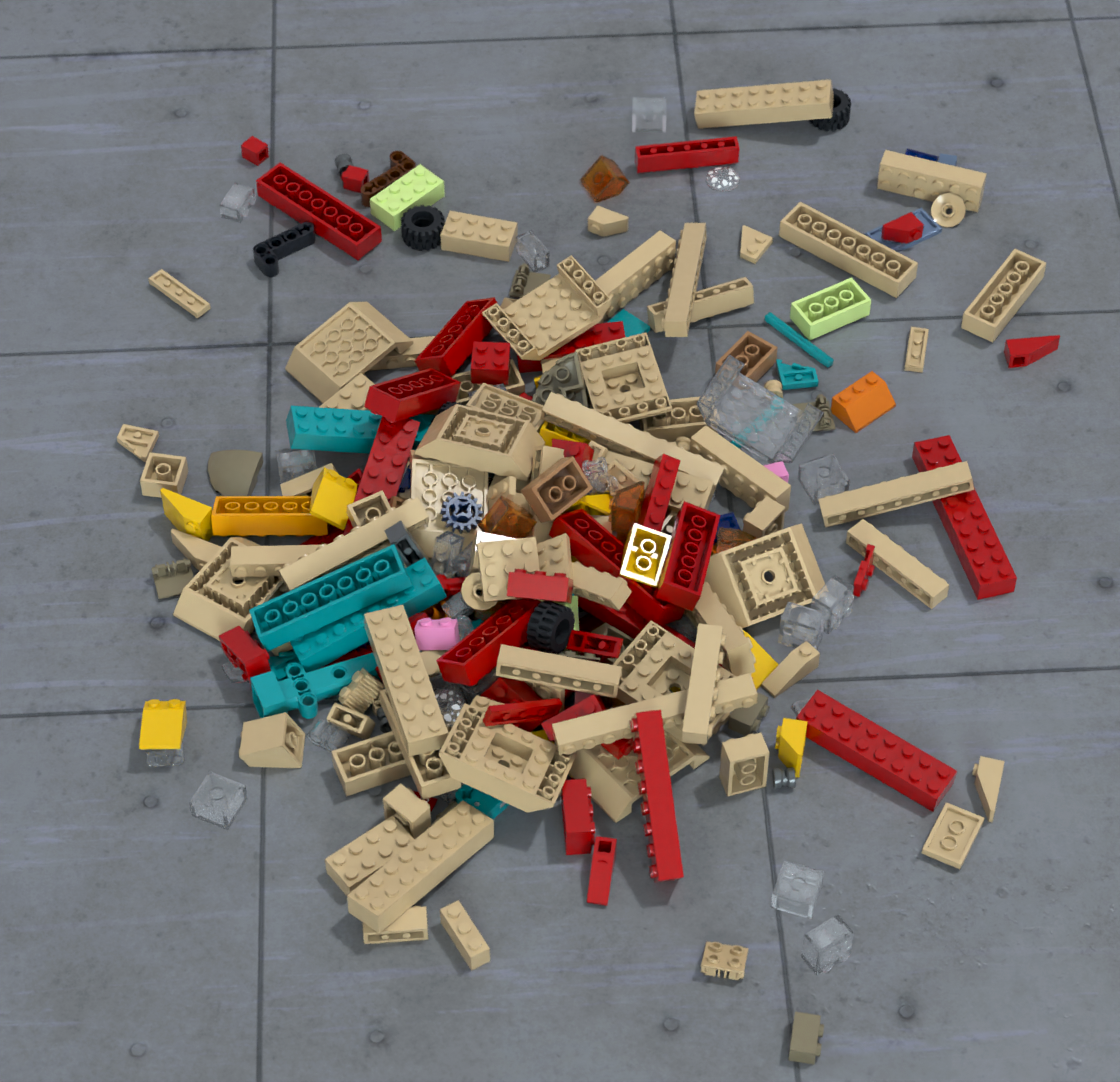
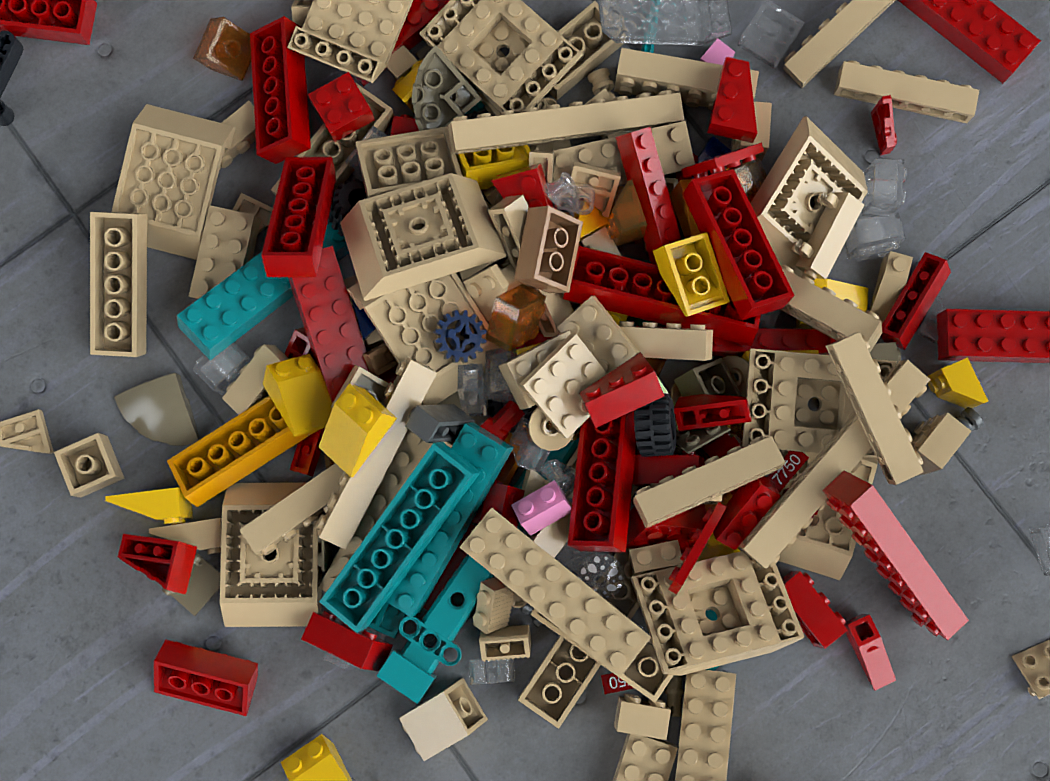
camera: 30 degrees left, 30 degrees up
(136, 633) = (205, 677): none -> red slope
(167, 544) = (160, 559): none -> red wedge
(267, 385) = (118, 284): none -> tan brick
(351, 516) = (355, 428): none -> yellow slope
(442, 303) = (225, 48): none -> clear orange slope
(728, 516) = (728, 160): none -> red plate
(754, 487) = (734, 103): none -> red wedge
(766, 600) = (829, 235): none -> tan brick
(803, 682) = (915, 300): none -> red brick

